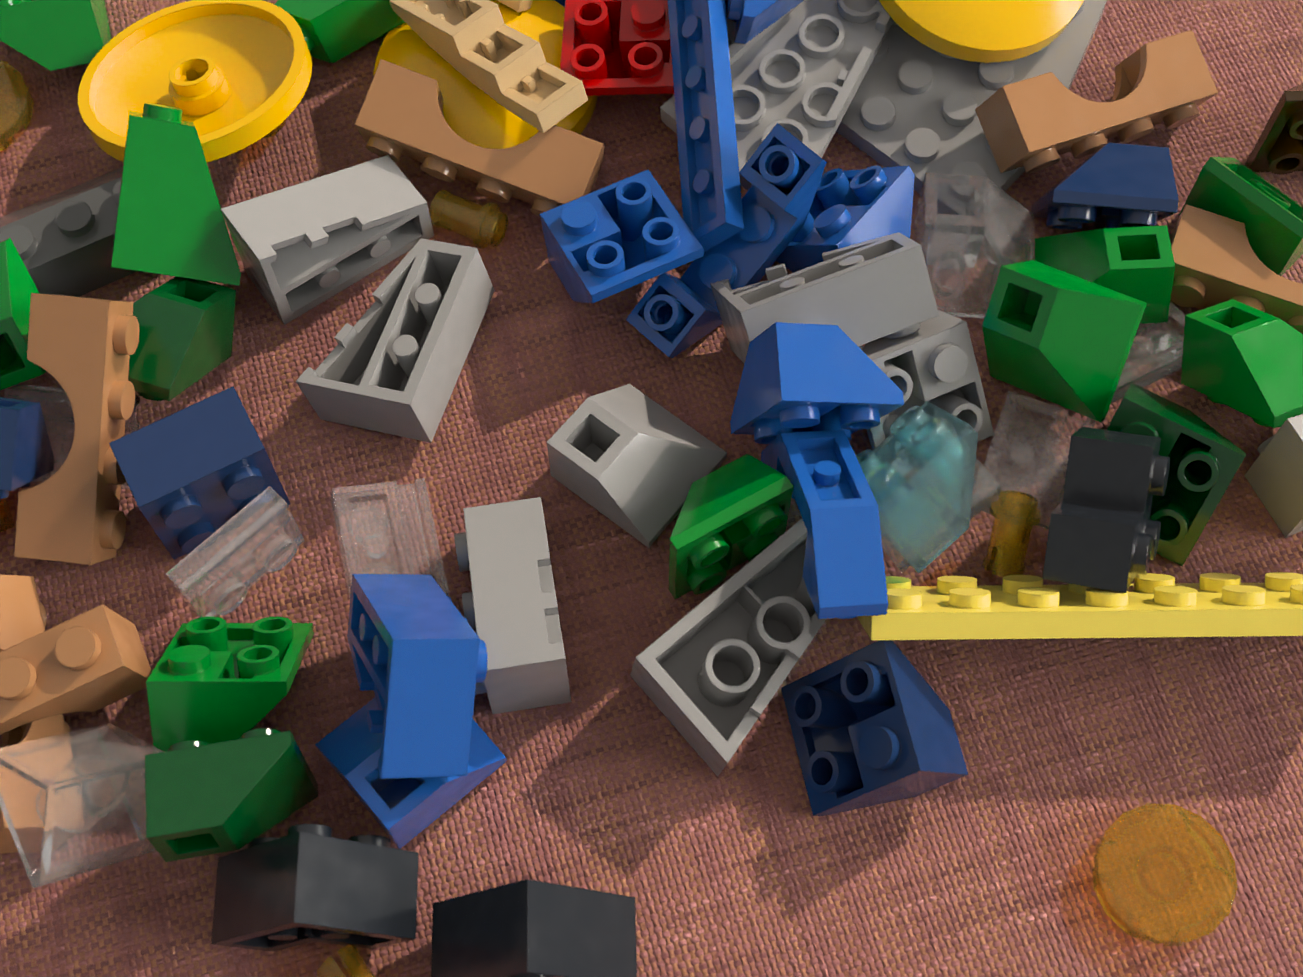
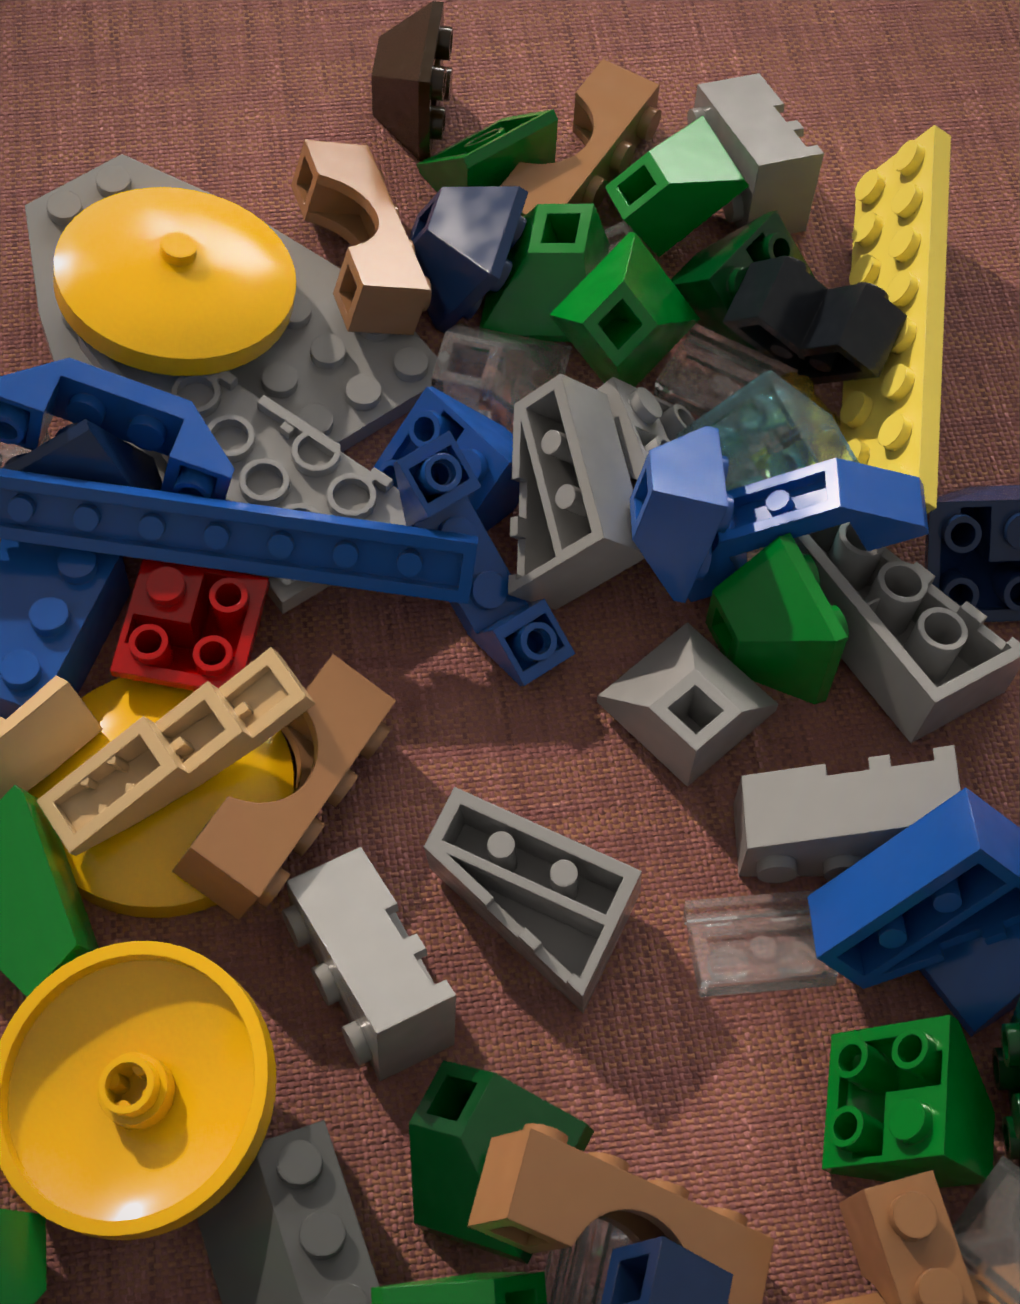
camera: 85 degrees left, 5 degrees down
(169, 204) = (342, 1106): green slope -> none
(196, 470) = (684, 1102): dark blue brick -> none
(237, 555) = (772, 1086): clear plate -> none
(481, 223) = (361, 827): clear yellow pin -> none
(616, 238) = (452, 667): blue slope -> none

